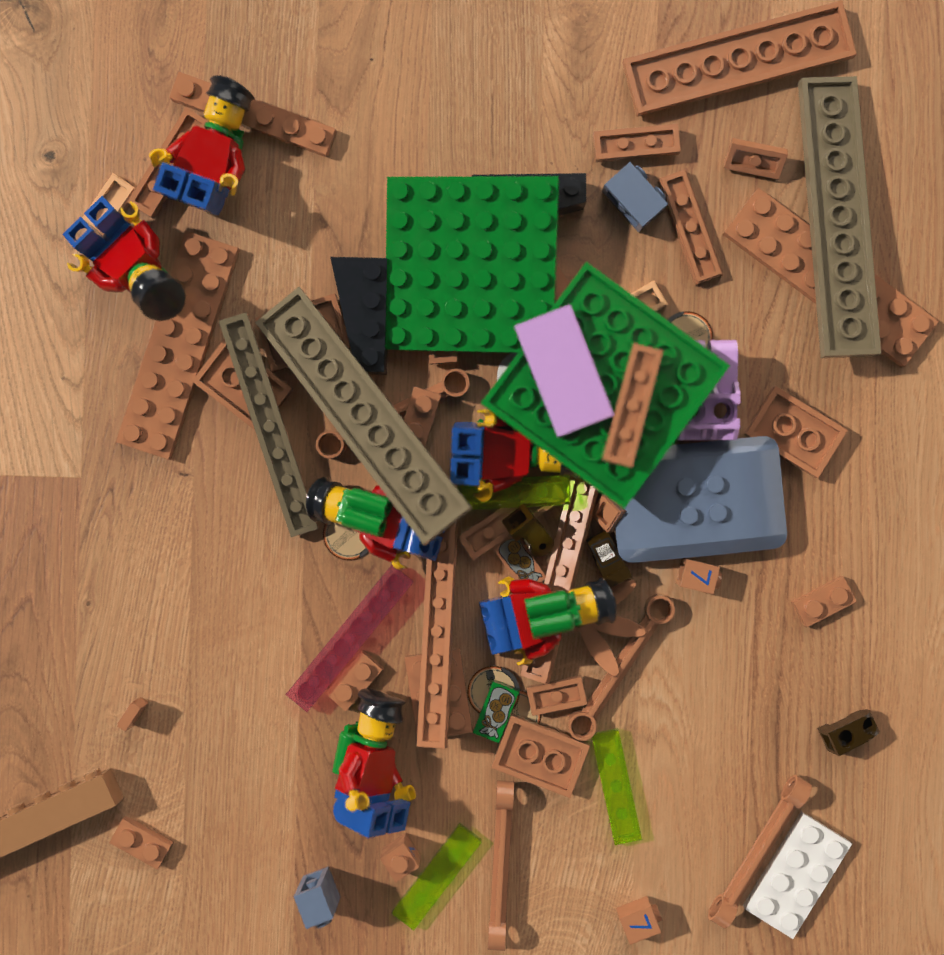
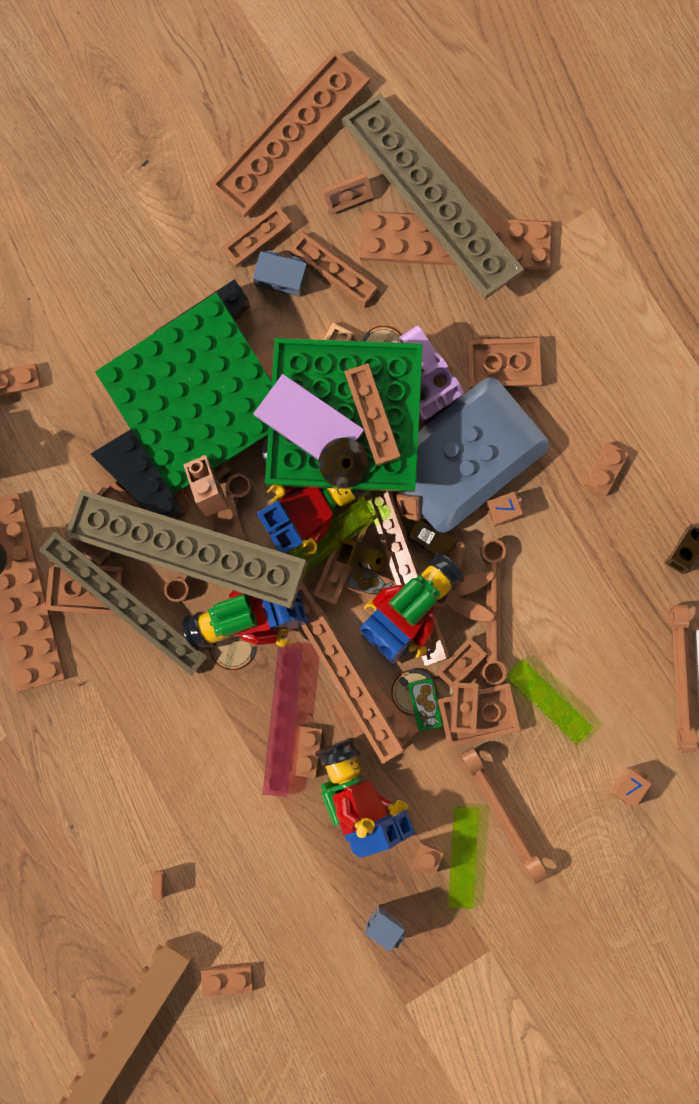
camera: 30 degrees left, 5 degrees down
(421, 364) = (205, 486): none -> nougat slope
(531, 742) = (464, 707): none -> nougat plate
(570, 421) = (331, 462): none -> dark brown dish

